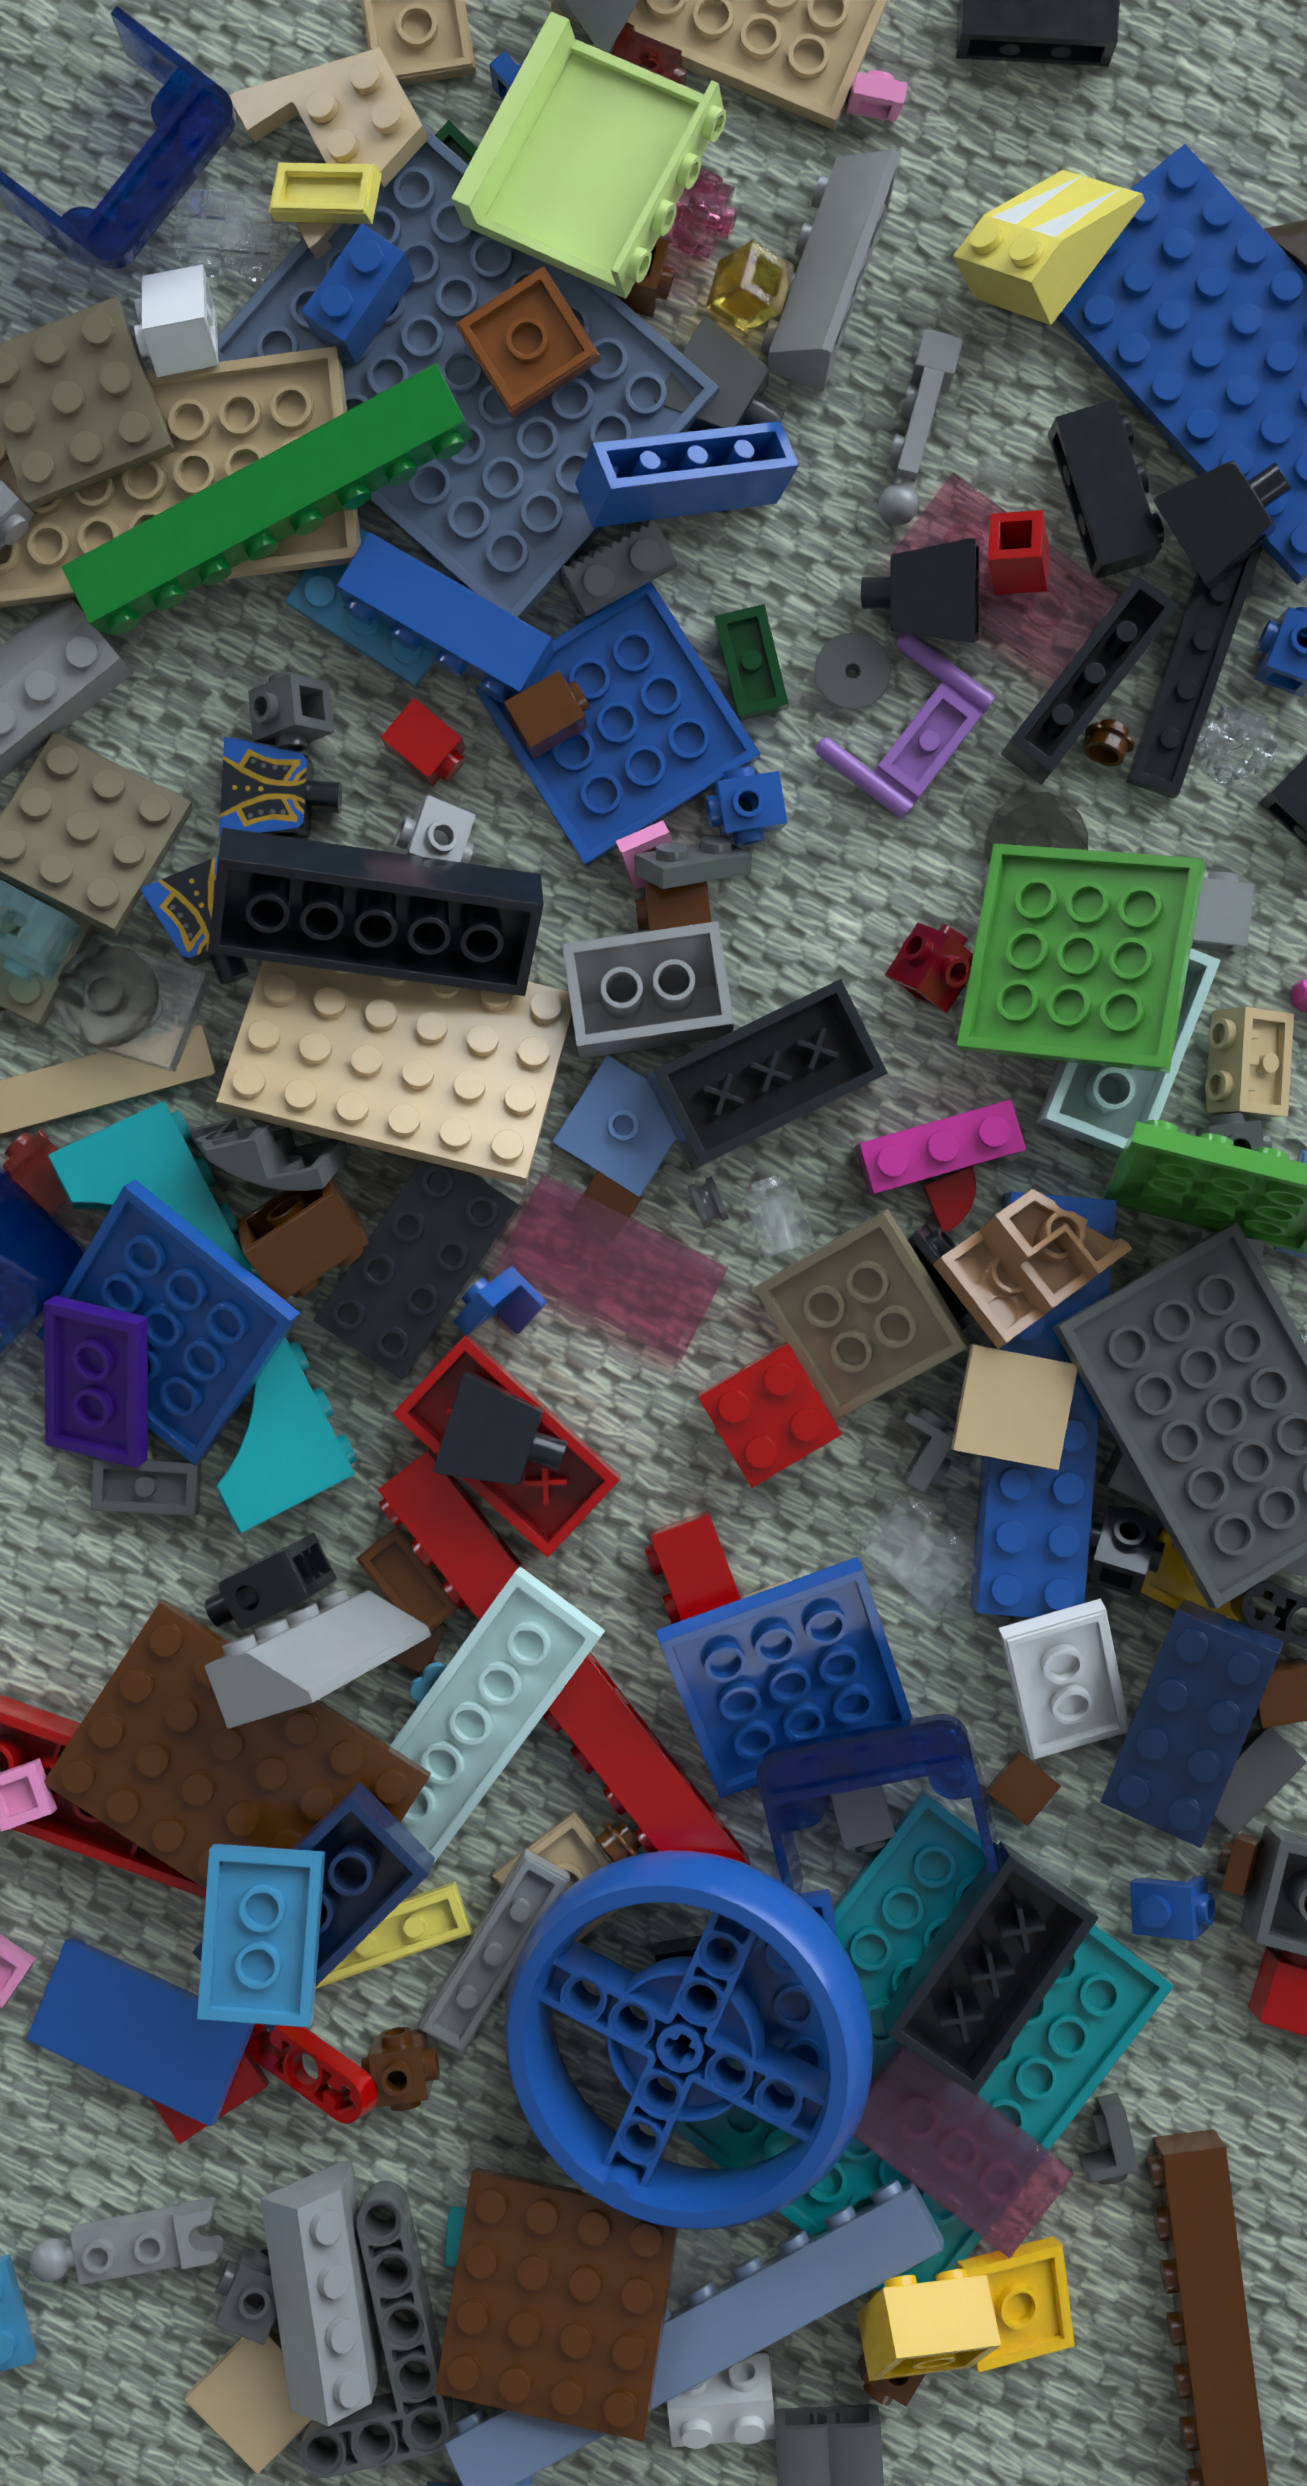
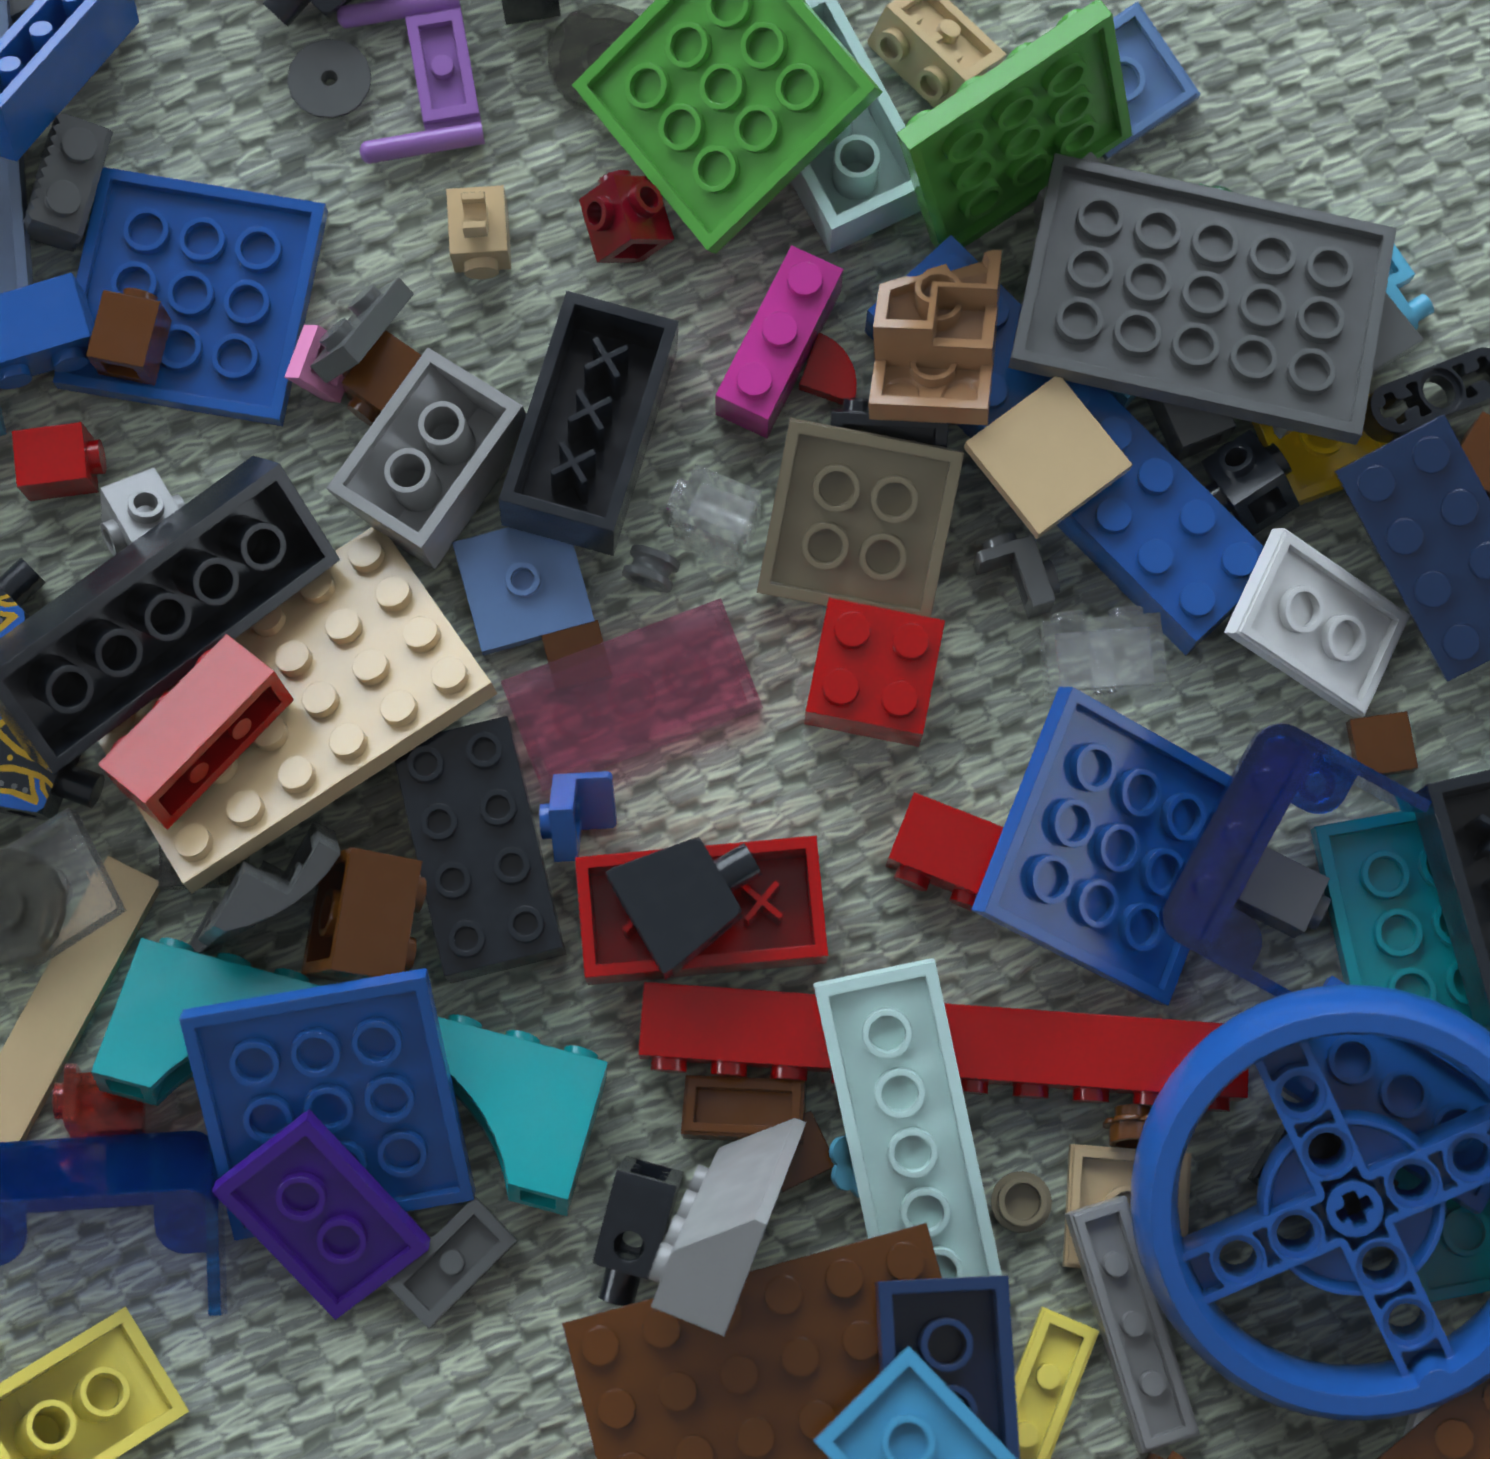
camera: 50 degrees left, 10 degrees down
(320, 1015) = (196, 731): none -> brick
(508, 1812) = (1021, 1202): none -> dark tan plate
(751, 662) = (245, 148): dark green plate -> none
(764, 797) = (356, 247): blue brick -> none
(835, 874) = (478, 231): none -> tan brick

